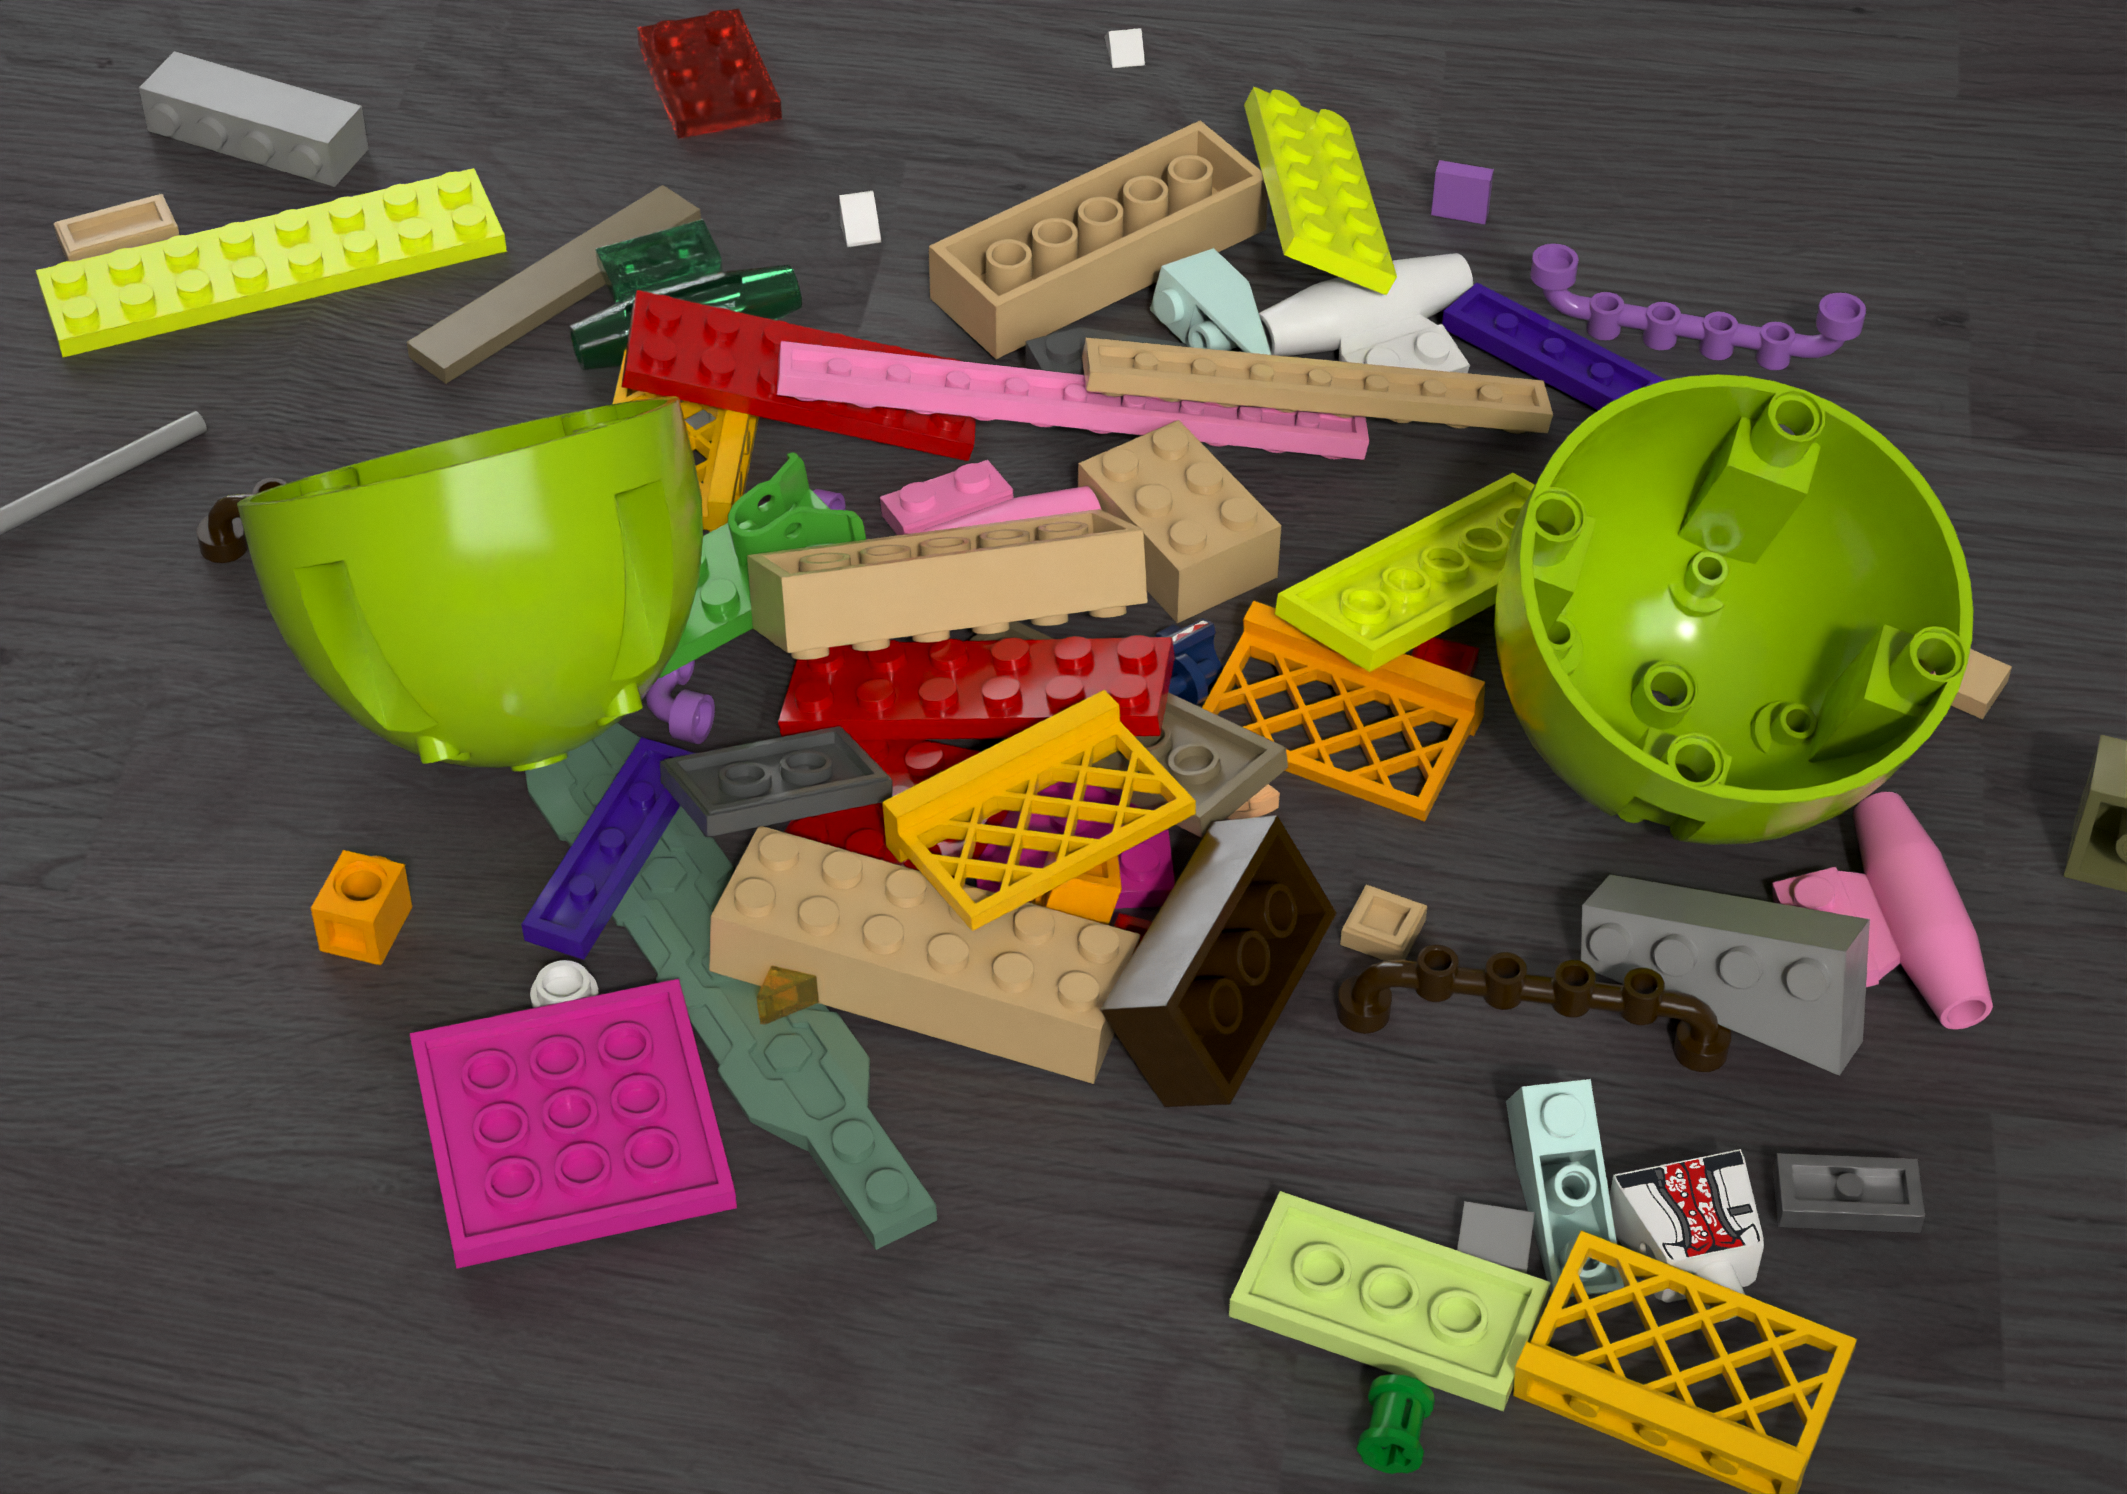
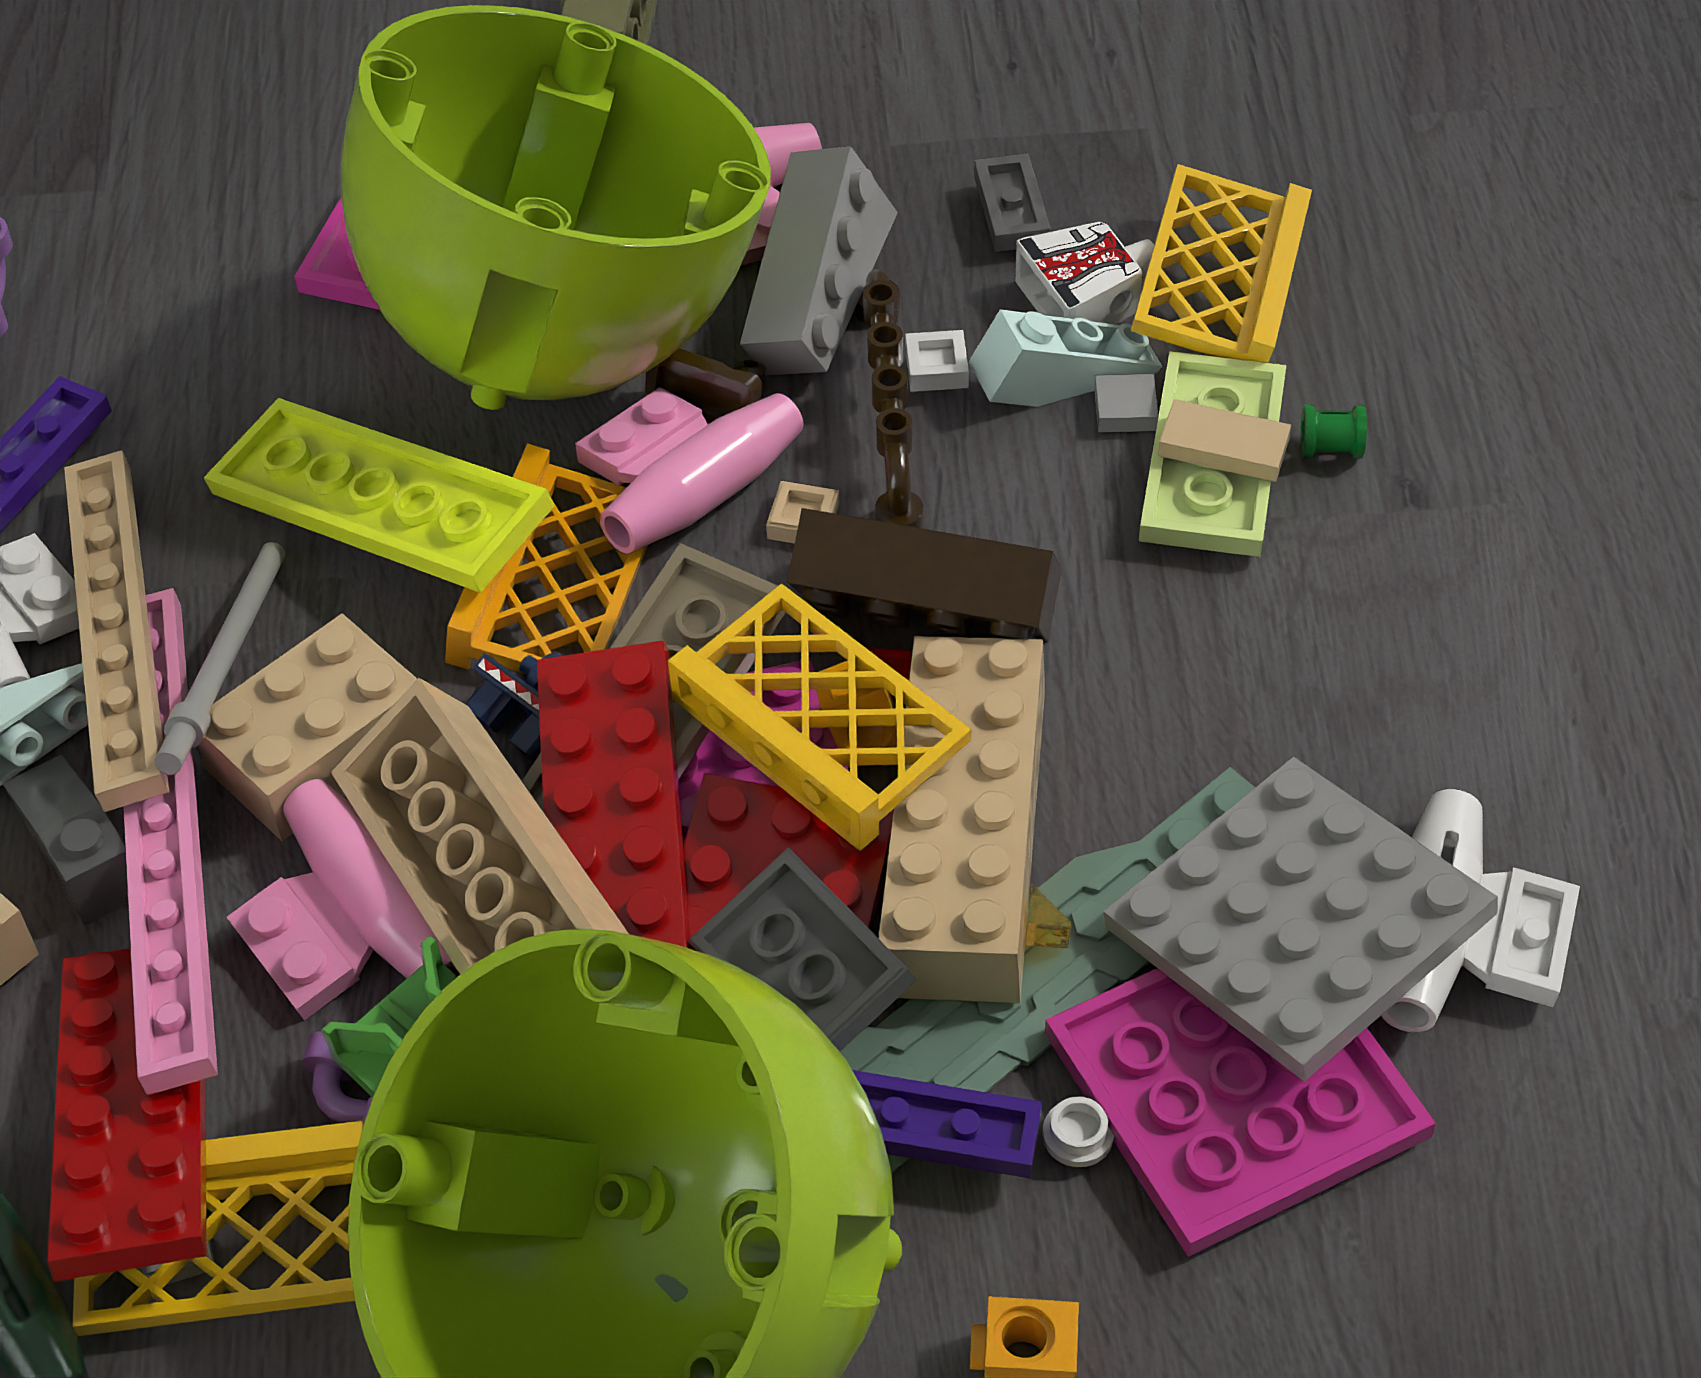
camera: 100 degrees left, 5 degrees up
(674, 1351) = (1513, 953): none -> white plate
(706, 1181) = (1300, 916): none -> light grey plate
(1150, 398) = (191, 718): none -> light grey bar
(1379, 1287) = (1224, 440): none -> tan tile
(1460, 819) = (680, 462): none -> bright pink plate
(1556, 872) = (708, 382): none -> dark brown piece
(1584, 1057) = (936, 360): none -> white plate

